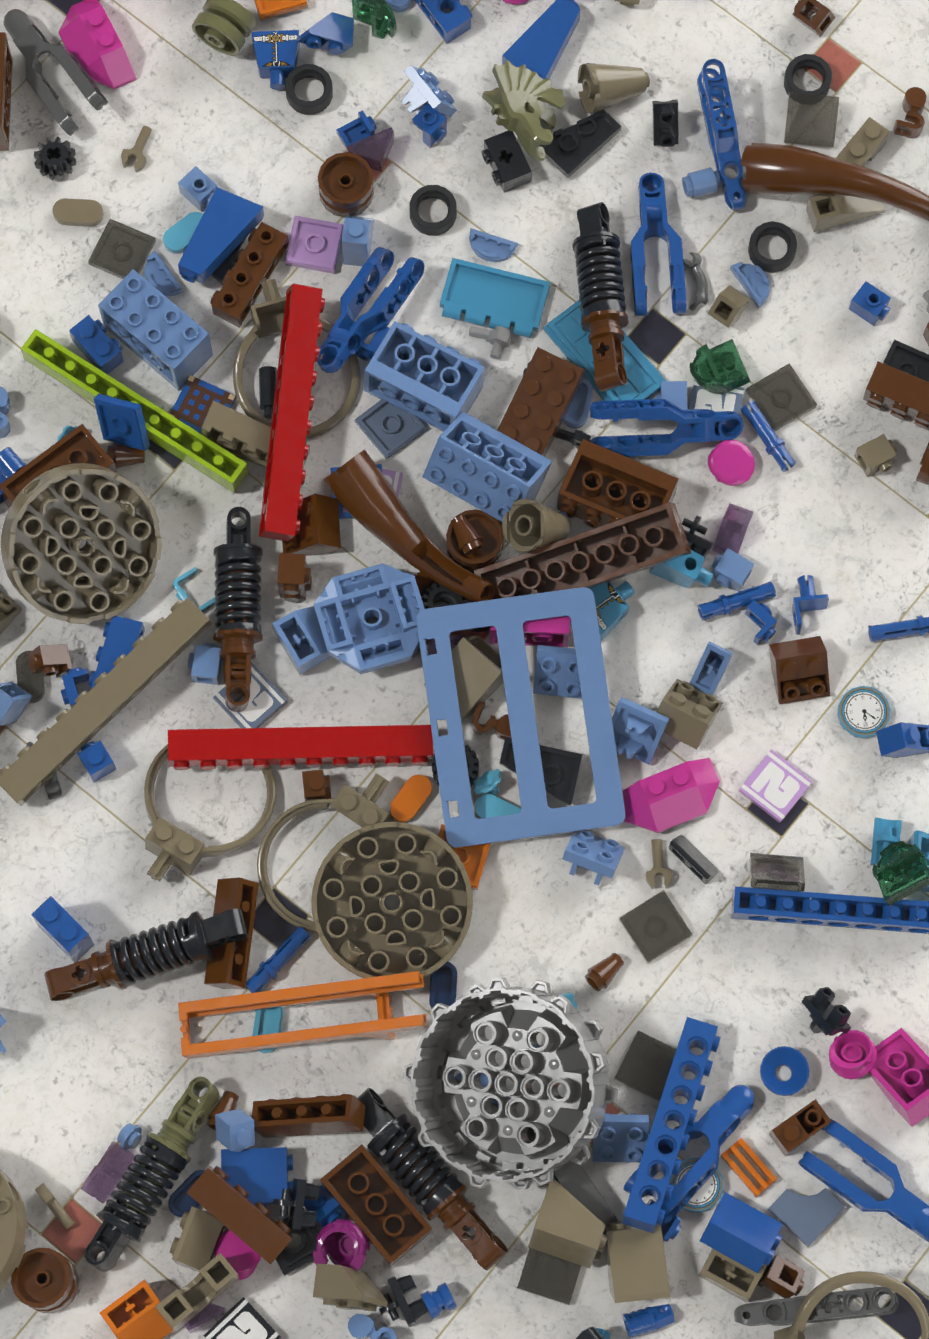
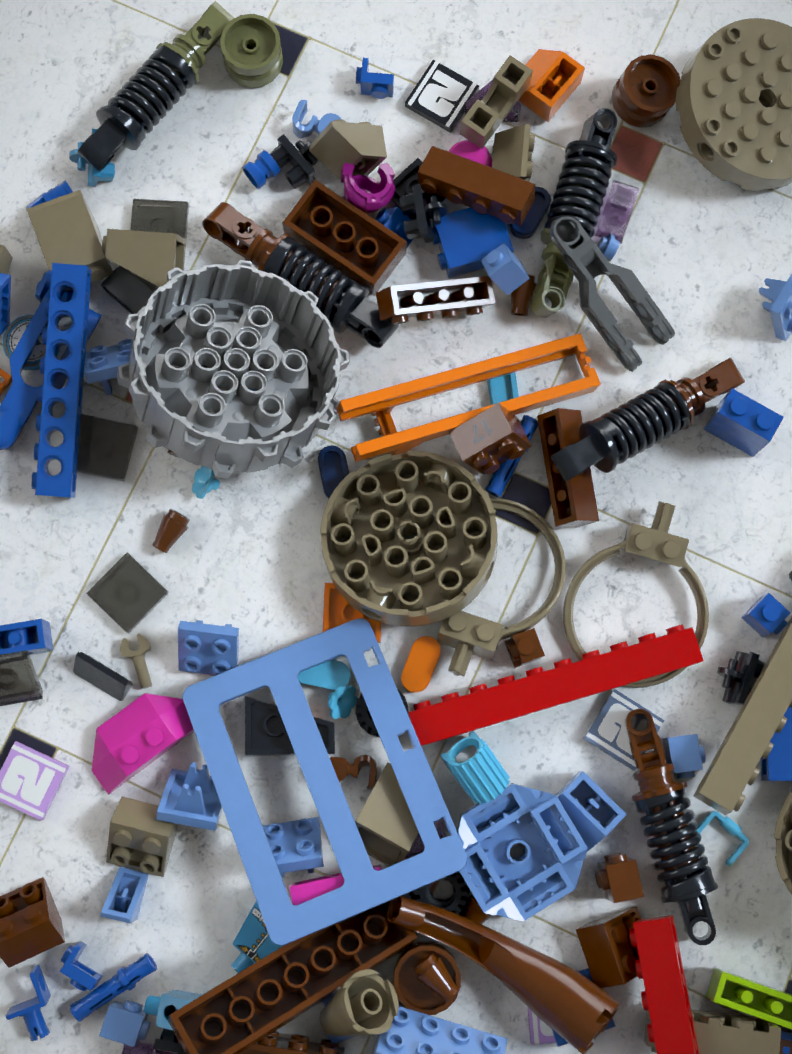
camera: 165 degrees right, 5 degrees up
(49, 1199) = (669, 171): dark tan bar -> none
(136, 716) = (739, 676): none -> black hips
(159, 1110) = (588, 262): none -> dark grey piece
(295, 968) = (490, 439): none -> reddish brown brick
(380, 682) = (481, 774): none -> medium azure piece

